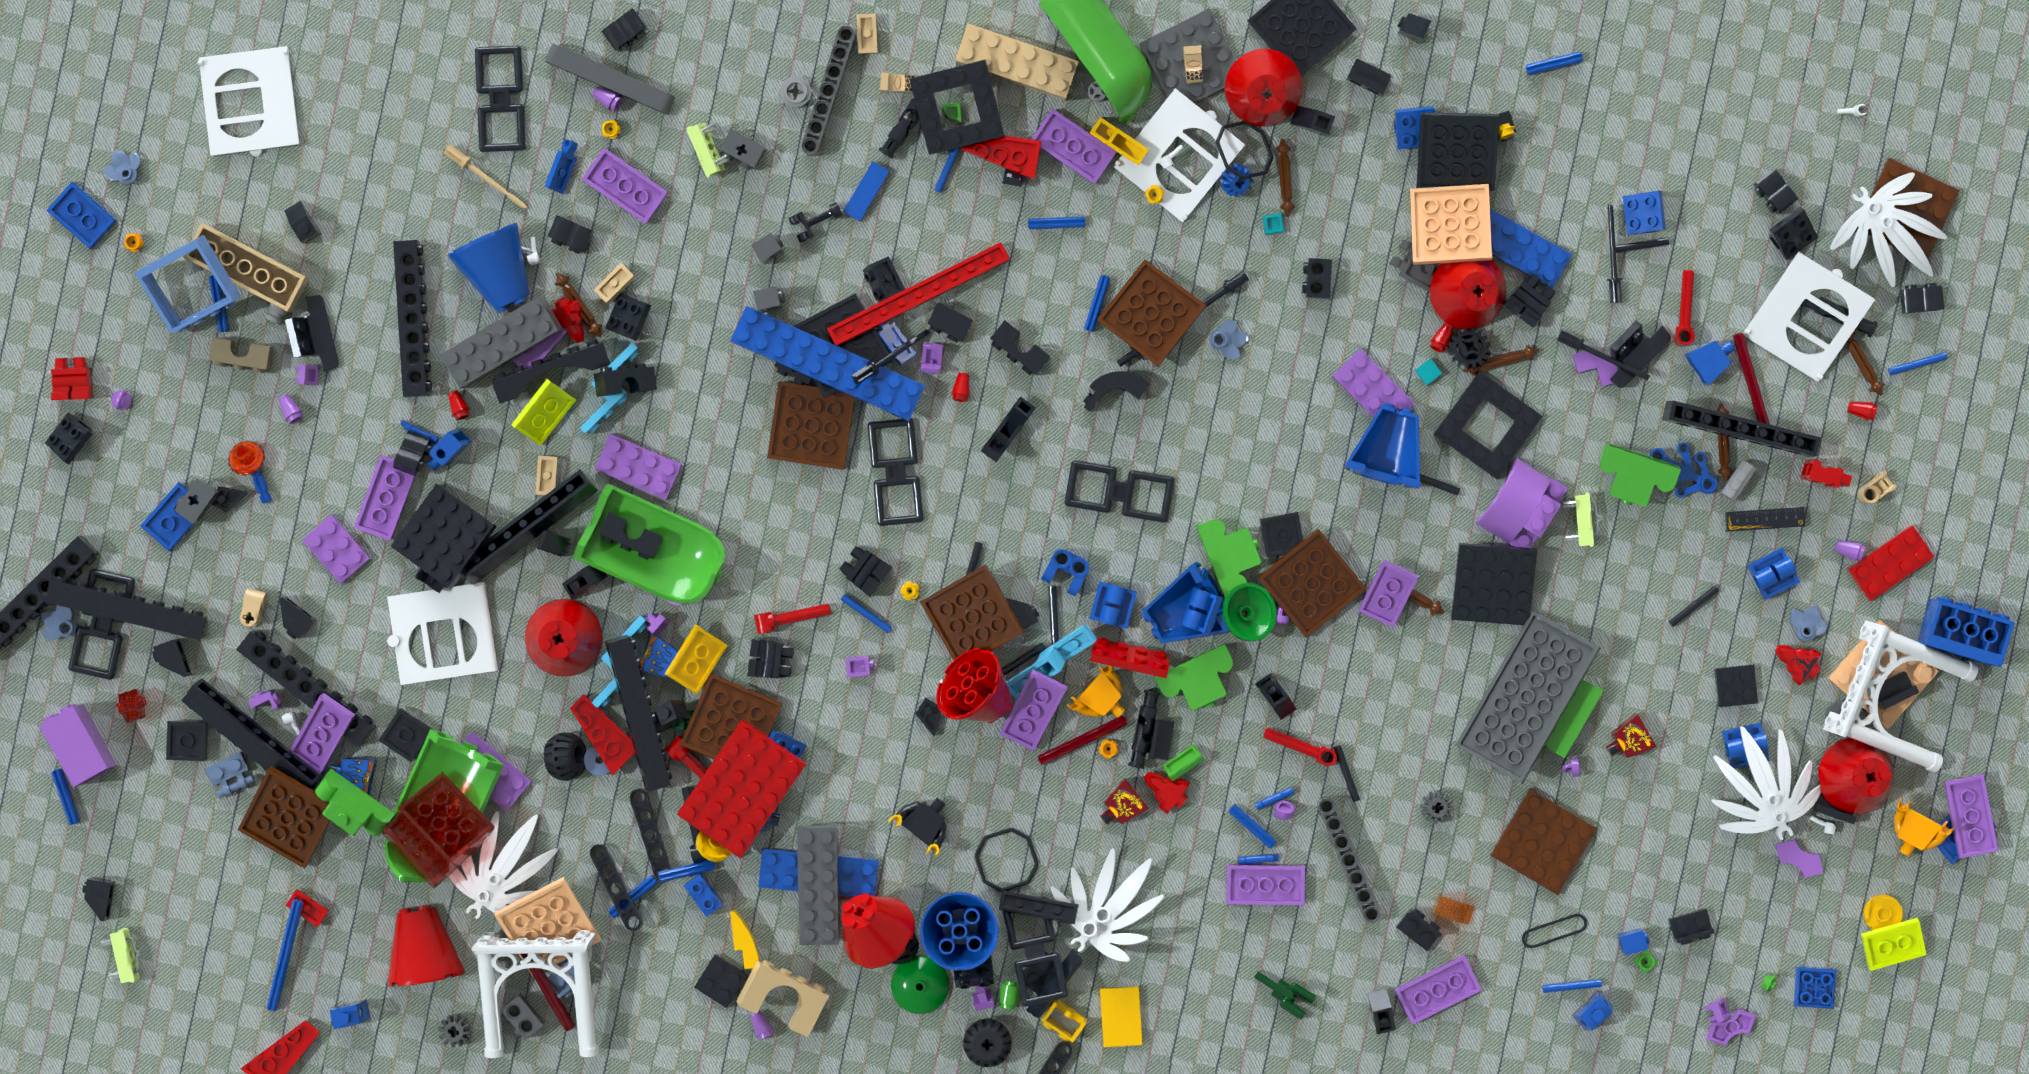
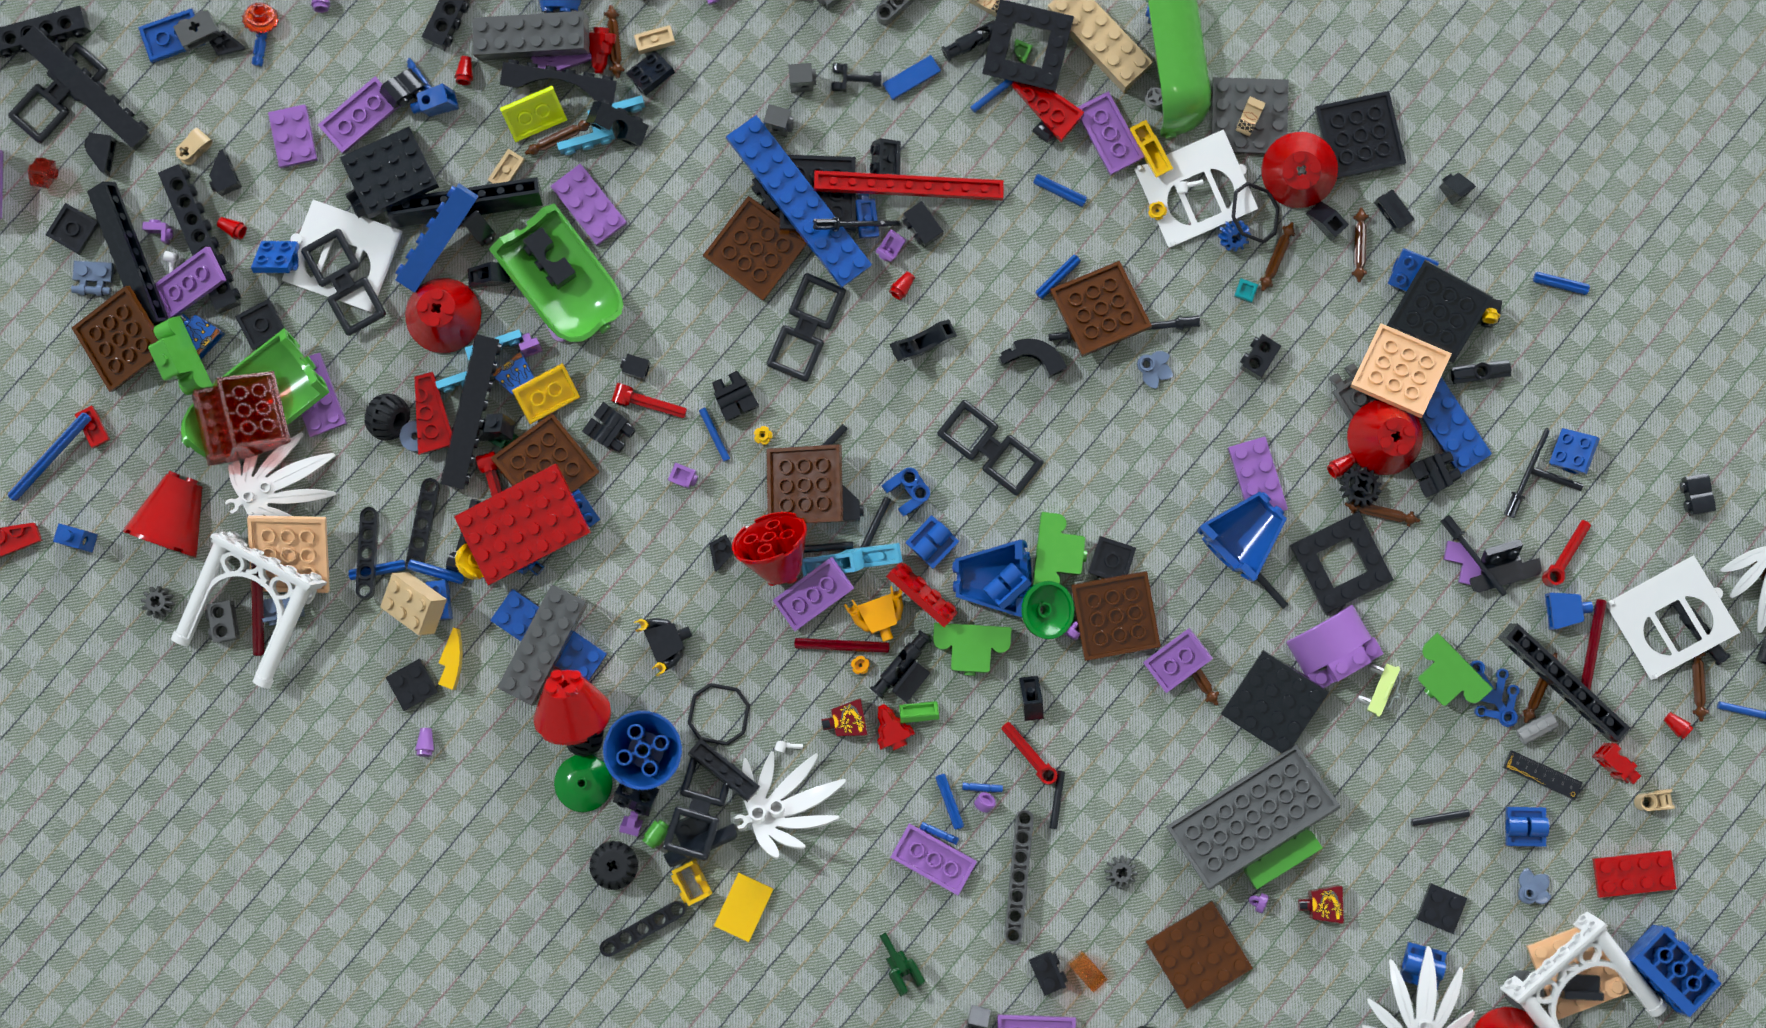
camera: 25 degrees right, 5 degrees down
(56, 622) = (21, 70): sand blue plate -> none
(330, 662) = (233, 228): none -> red cone
(385, 668) = (276, 257): none -> blue plate
(458, 657) = (343, 282): none -> black bar
(520, 574) = (436, 238): none -> blue brick
(579, 419) = (559, 136): none -> reddish brown wheel
(684, 910) = (413, 603): none -> tan brick
(762, 591) = (635, 367): none -> black brick
(766, 977) = (452, 700): tan arch -> none
(1031, 360) = (975, 294): black arch -> none
(1077, 857) = (781, 746): none -> white hand
(1354, 126) = (1360, 245): none -> reddish brown wheel
(1428, 371) = (1313, 488): teal tile -> none
(1532, 177) = (1492, 371): none -> black piece
(1793, 233) = (1695, 538): black plate -> none
(1799, 662) = (1508, 917): red rock -> none
(1850, 549) = (1604, 842): medium lavender cone -> none

